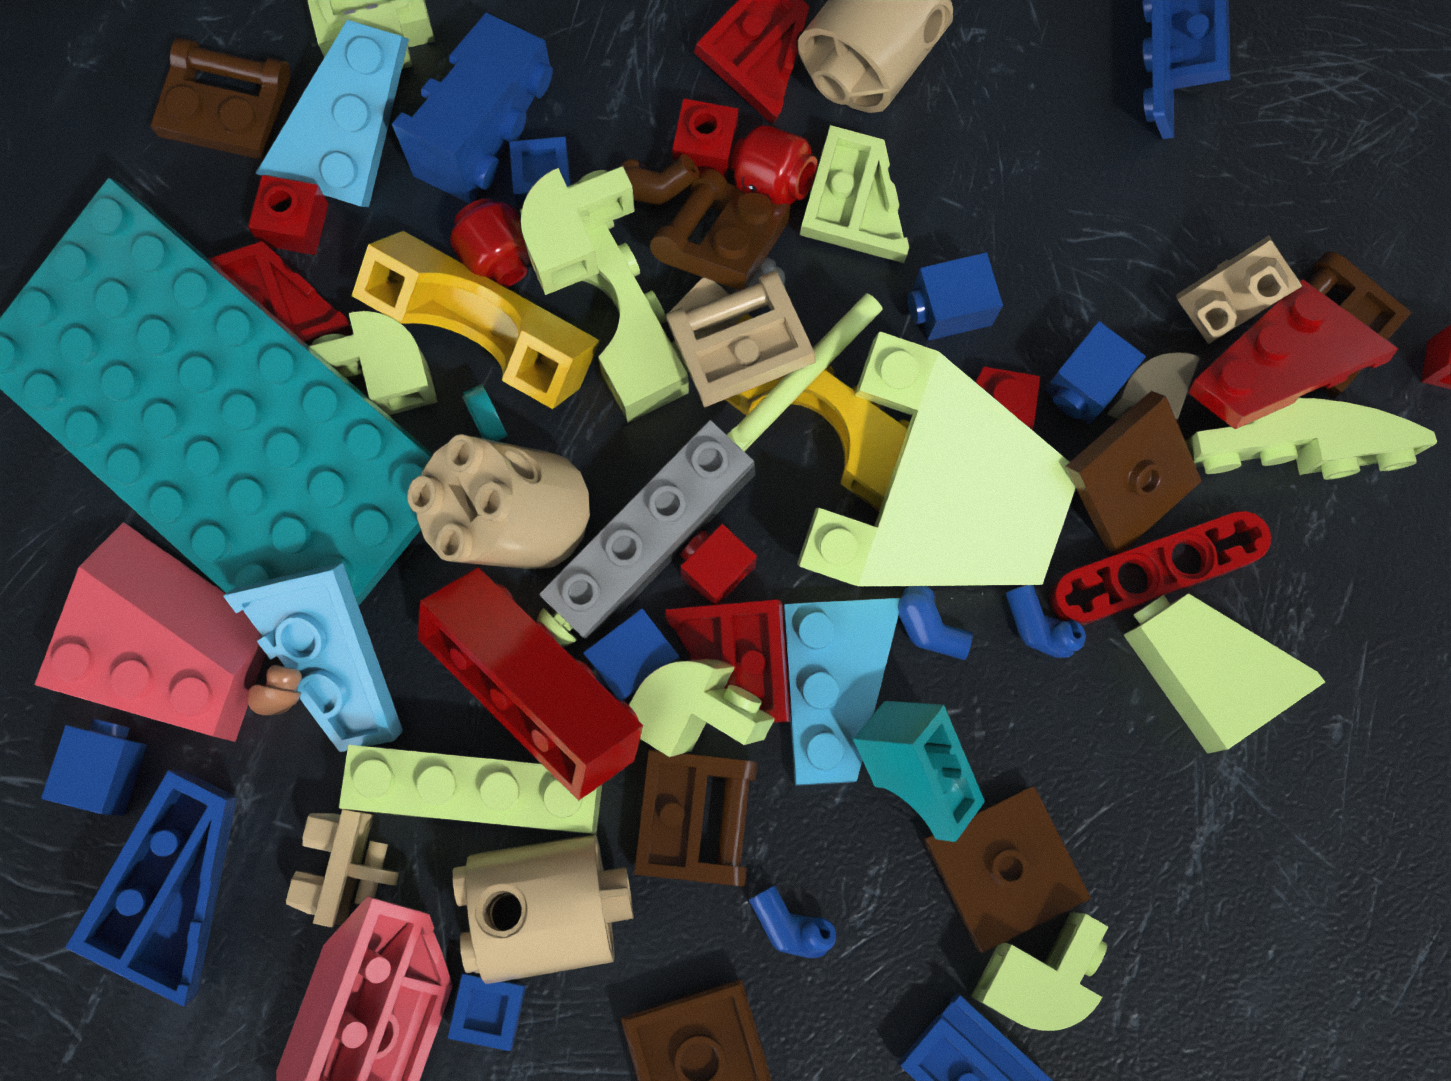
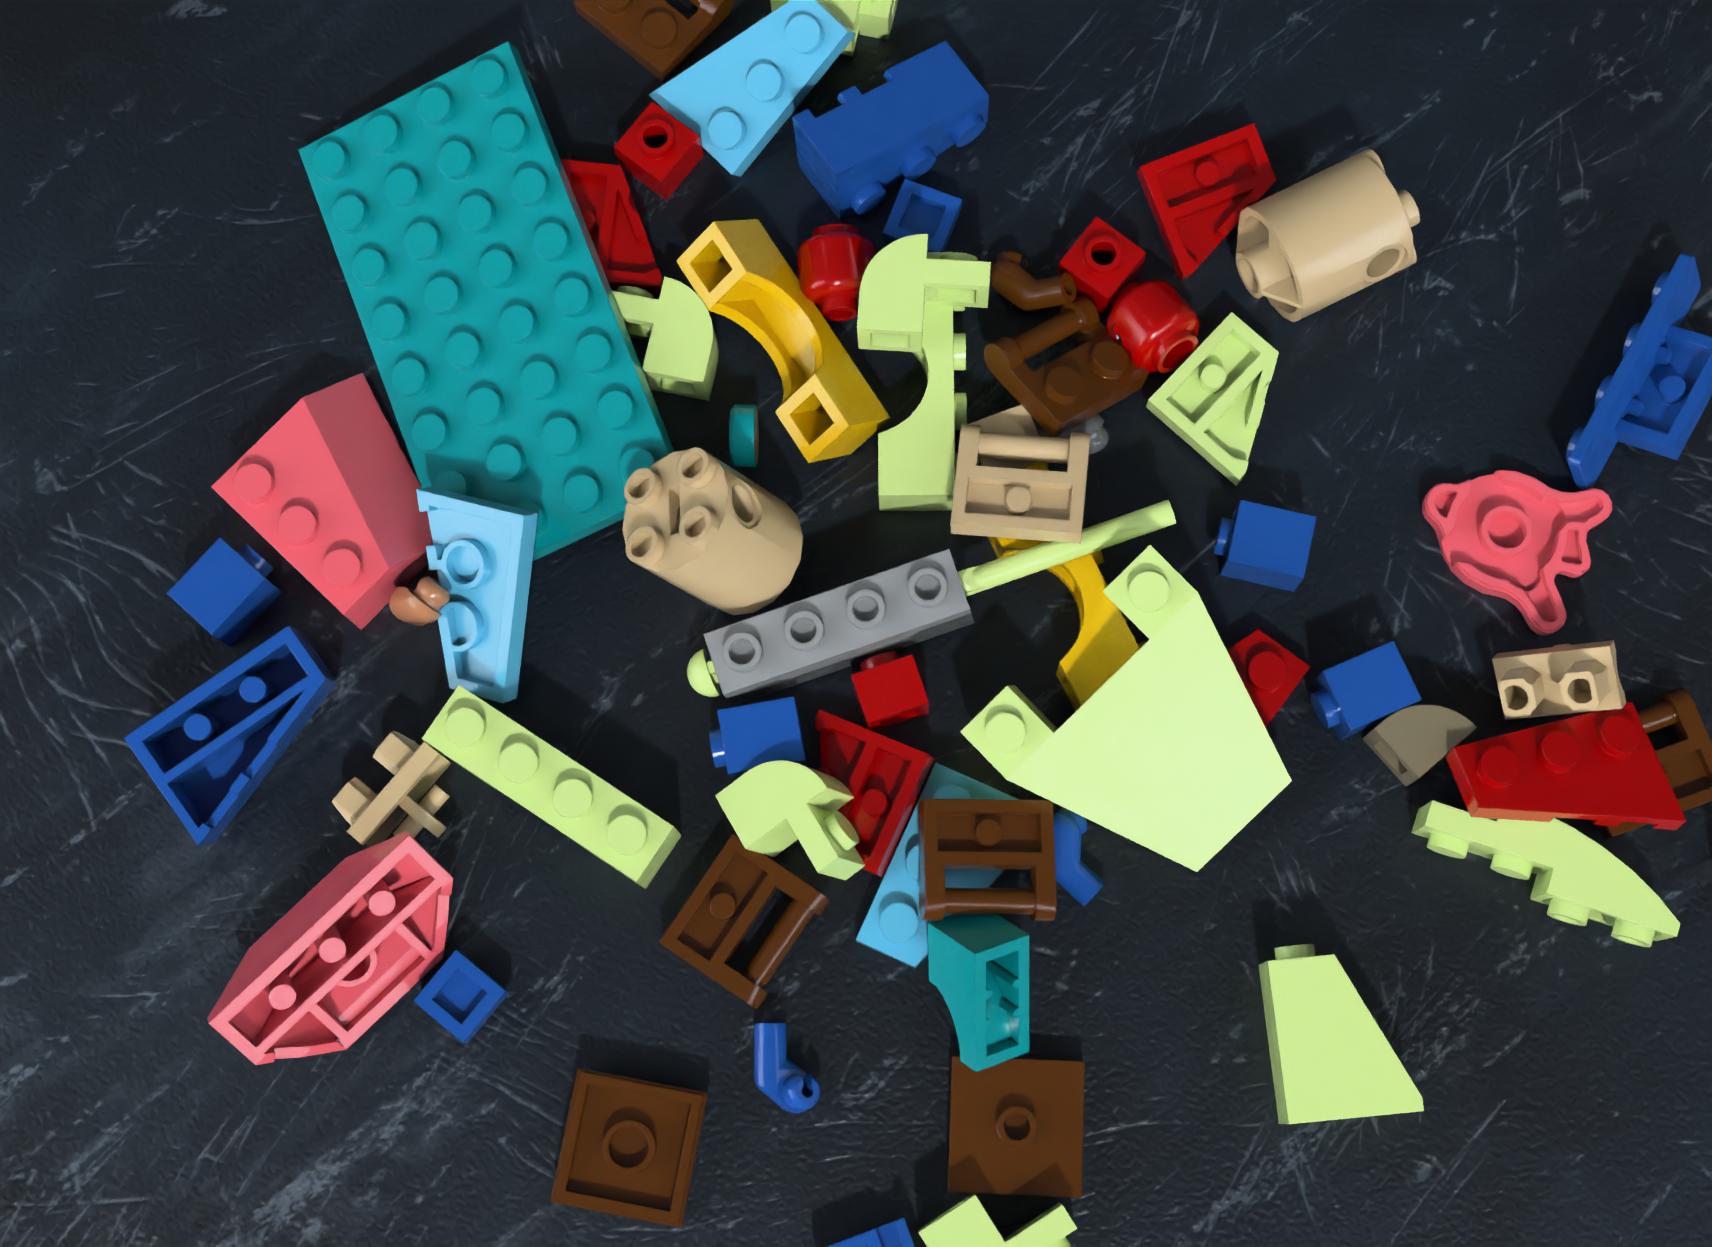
camera: 40 degrees right, 0 degrees up
(529, 682) = (652, 711): red brick -> none
(564, 906) = (577, 937): tan cylinder -> none
(862, 643) = (987, 837): none -> reddish brown plate
(1042, 631) = (1173, 915): blue arm -> none
(1134, 472) = (1348, 809): reddish brown plate -> none
(1139, 200) = (1513, 538): none -> coral tile
(1160, 570) = (1328, 924): red beam -> none

